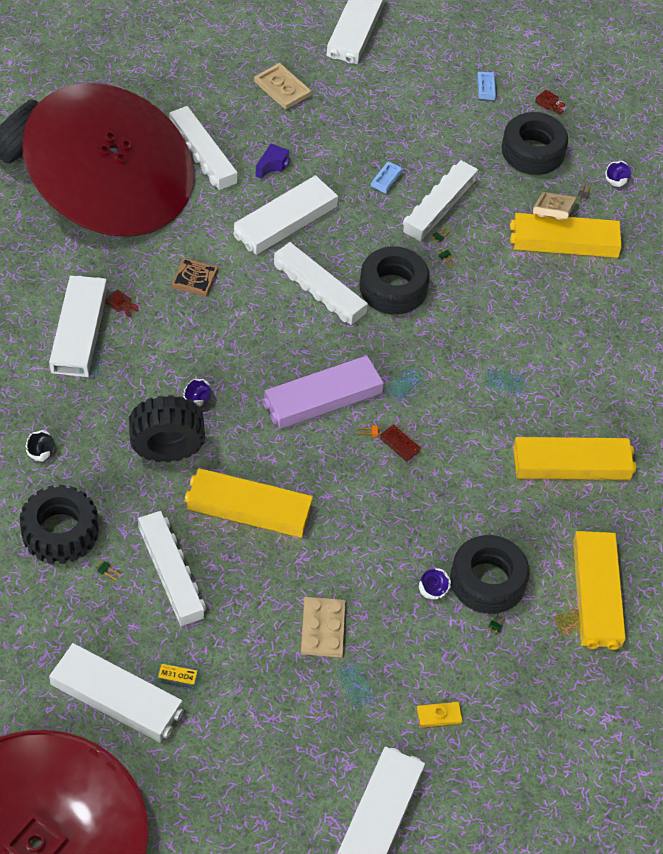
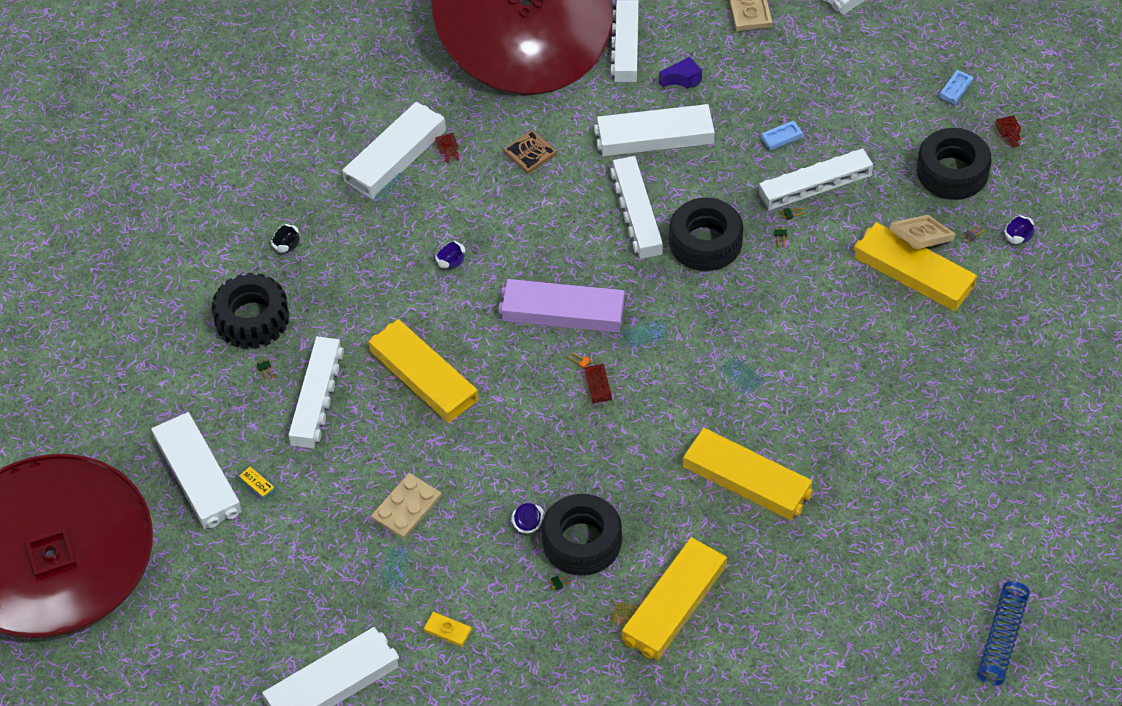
camera: 40 degrees right, 0 degrees up
(166, 428) = (389, 270): black tyre -> none

